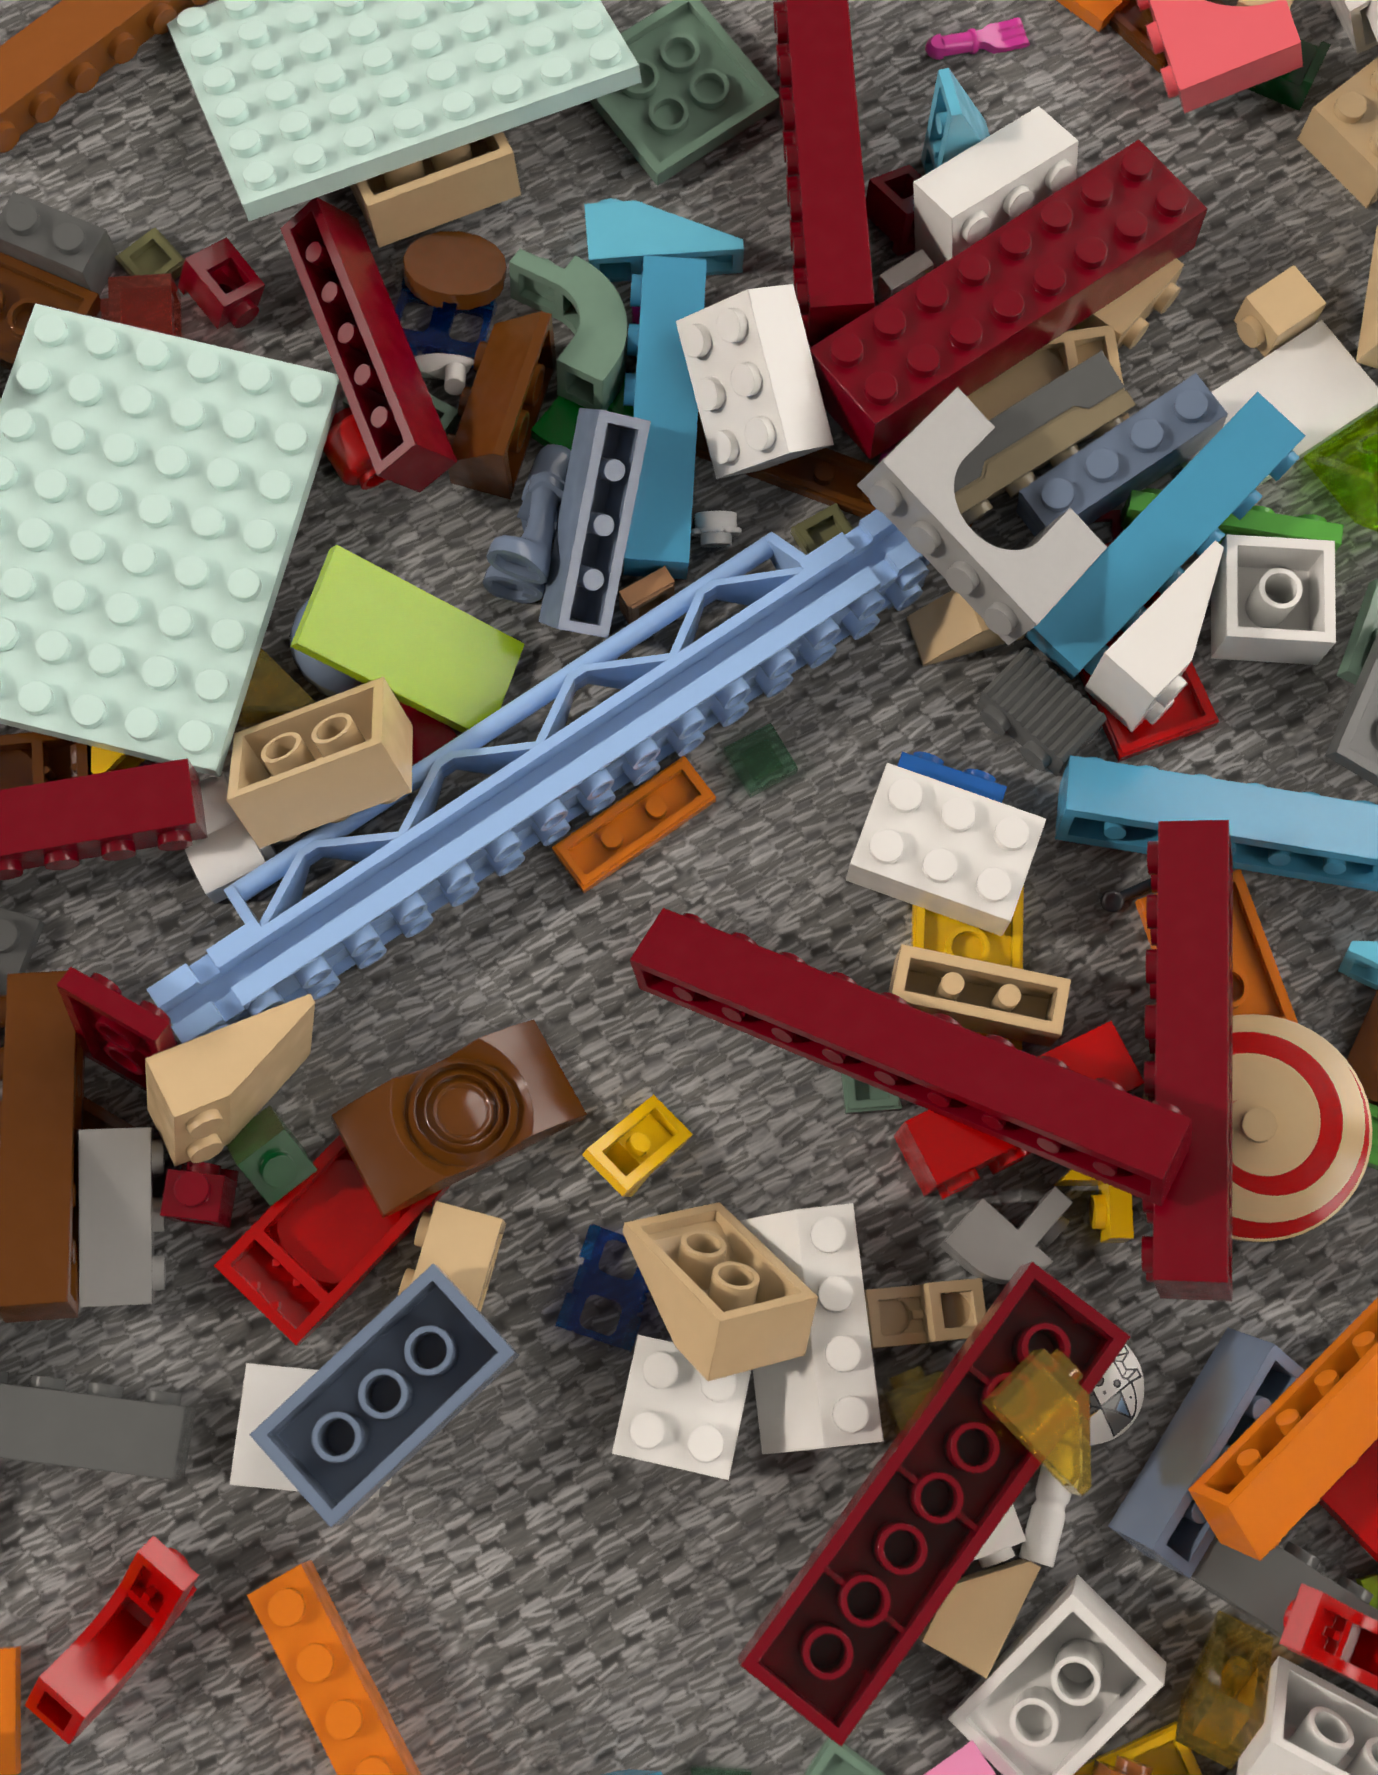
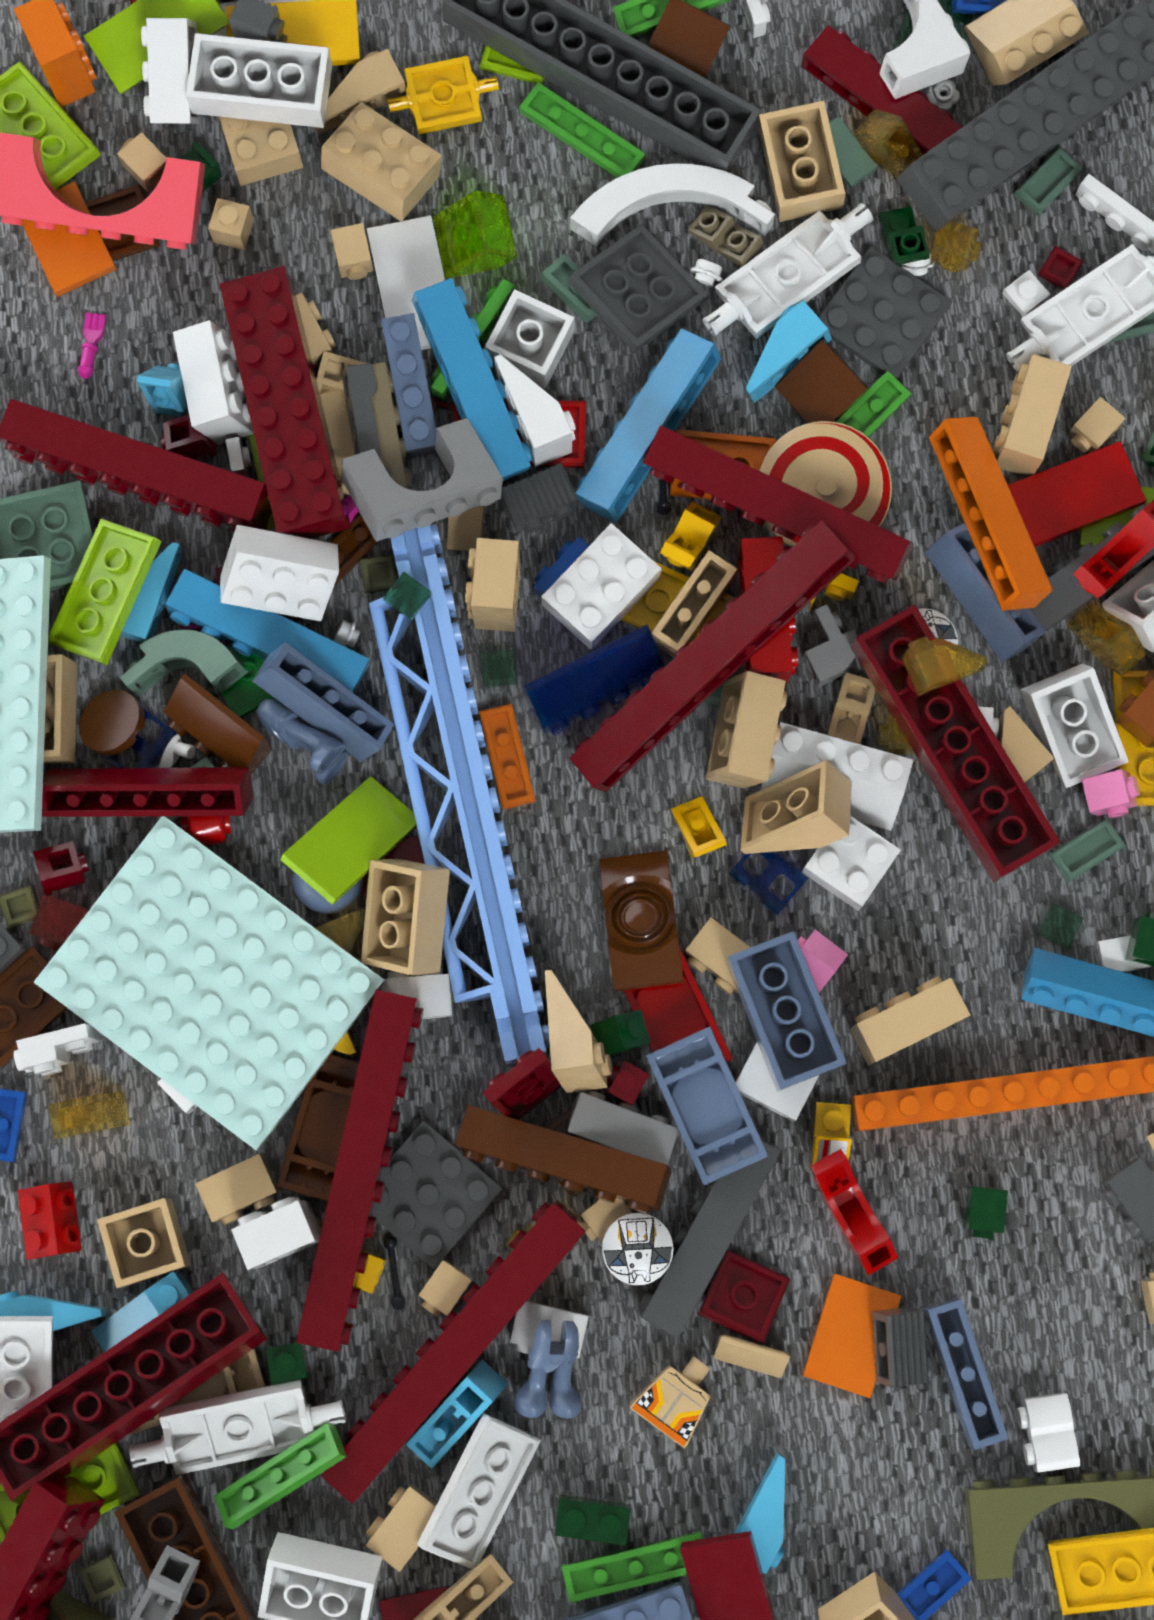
camera: 65 degrees left, 5 degrees up
(196, 1334) = (707, 1106): none -> sand blue slope
(239, 1552) = (831, 1130): none -> yellow slope
(456, 1605) = (908, 1019): none -> tan brick
(504, 1417) = (821, 957): none -> bright pink brick
(631, 179) = (103, 591): none -> lime tile
(646, 594) = (373, 691): medium nougat tile -> none
(794, 893) = (593, 681): none -> clear blue slope
(796, 565) = (407, 596): none -> clear green tile
(819, 1157) = (746, 730): none -> tan brick
(875, 687) = (493, 584): none -> tan brick
(1045, 1520) = (986, 693): white piece -> none
(1088, 954) = (691, 536): none -> yellow brick
(1236, 139) = (231, 224): none -> tan brick

